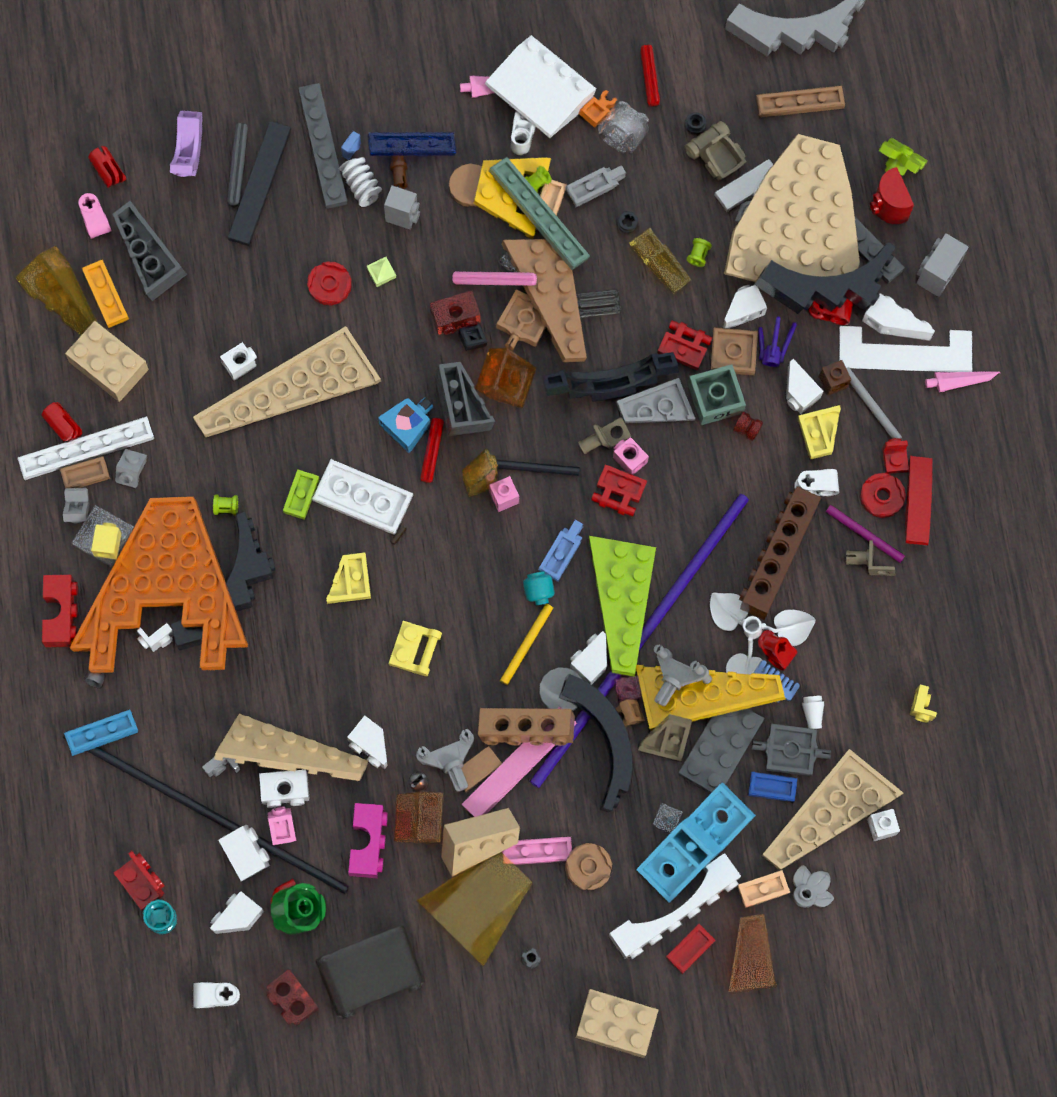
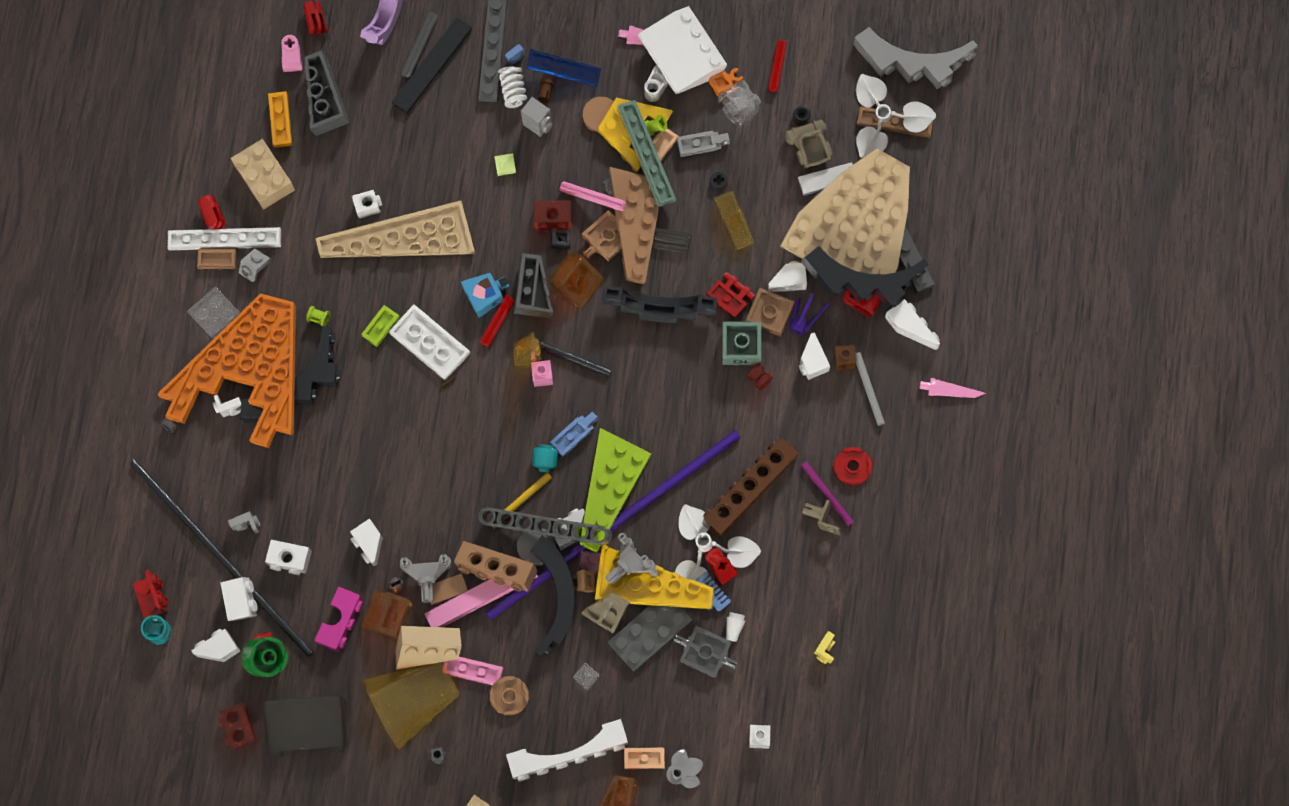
camera: 25 degrees right, 0 degrees up
(55, 284) = (242, 98): clear yellow wedge -> none
(60, 630) = (156, 377): red arch -> none
(76, 505) = (201, 282): light grey bracket -> none
(101, 732) = (159, 469): dark azure tile -> none
(106, 541) = (213, 317): light yellow brick -> none
(210, 994) = (176, 704): white piece -> none
(281, 825) = (275, 586): bright pink bracket -> none
(285, 750) = (298, 527): tan wing -> none
(329, 283) = (460, 162): red tile -> none
(351, 580) = (397, 406): light yellow wing -> none
(408, 645) = (425, 472): light yellow plate -> none
(557, 660) = (536, 526): none -> dark grey beam
(603, 436) = (639, 351): dark tan bracket -> none
(621, 484) = (641, 394): red plate -> none
(630, 465) = (657, 380): bright pink brick -> none
(657, 404) = (691, 337): light grey wing -> none
(690, 948) = (569, 788): red tile -> none
(695, 842) = (600, 702): medium azure bracket -> none
(699, 252) = (768, 222): lime bush -> none
(765, 73) = (871, 91): none -> white plant
(772, 786) = (680, 677): blue tile -> none
(819, 431) = (818, 397): light yellow wing -> none
(821, 482) = (803, 440): white piece -> none
(839, 802) = (730, 707): tan wing -> none
(892, 199) = (940, 223): red brick -> none
(895, 456) = (873, 437): red bracket -> none
(901, 157) = (961, 192): lime plant -> none
(906, 357) = (947, 370): white sticker -> none
(918, 501) = (880, 479): red slope -> none
(941, 264) = (964, 290): light grey brick -> none

